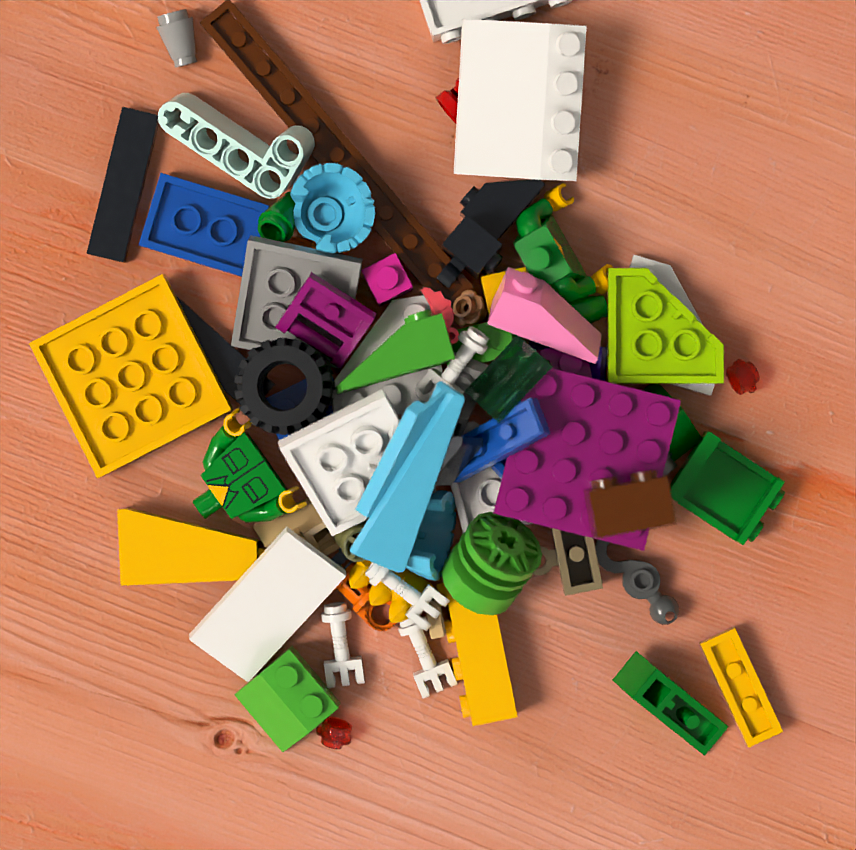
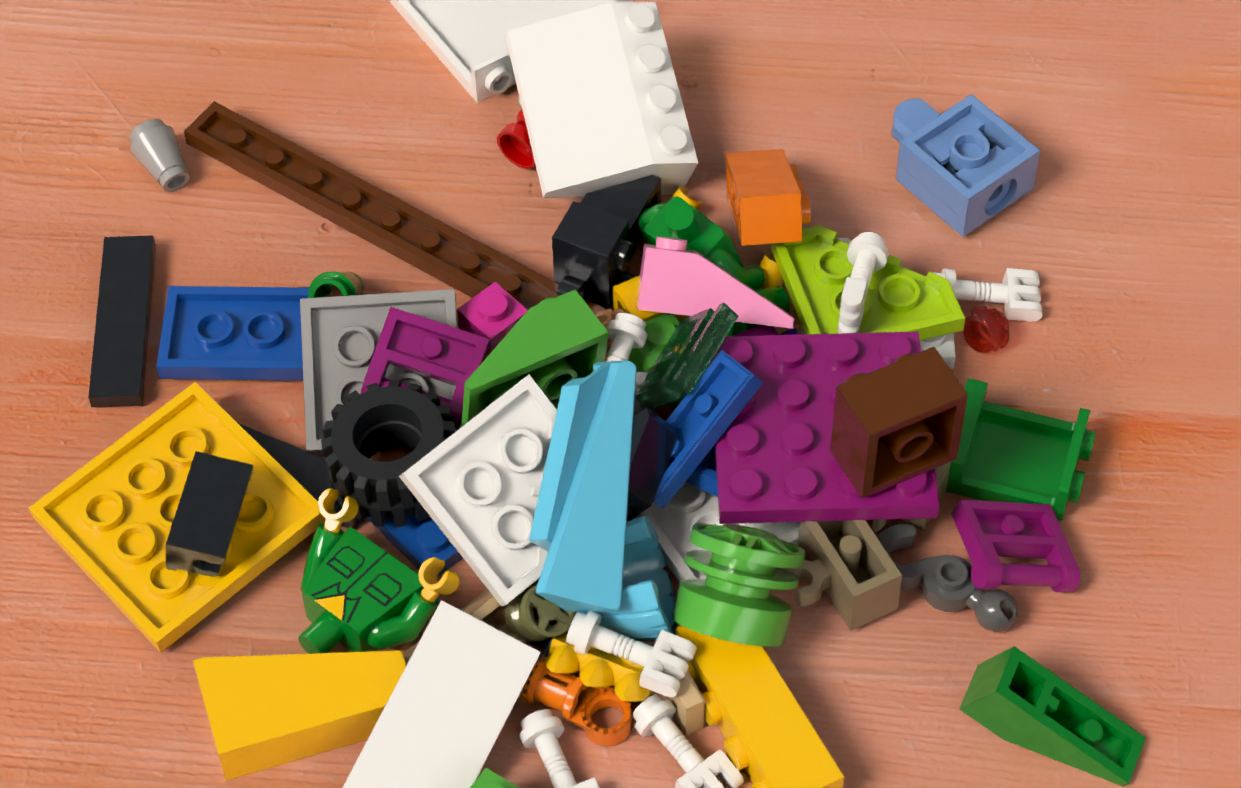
camera: 15 degrees left, 35 degrees down
(149, 401) = (207, 514): none -> black hinge
(234, 137) = (254, 229): light aqua beam -> none
(332, 207) = (398, 244): medium azure hair -> none
(616, 230) = (766, 197): none -> orange brick
(670, 315) = (866, 254): none -> white hinge
(696, 558) = (1020, 531): none -> magenta plate
(727, 333) = (1017, 292): none -> white hinge
(741, 687) = (1141, 678): yellow plate -> none
(776, 225) = (962, 160): none -> medium blue brick

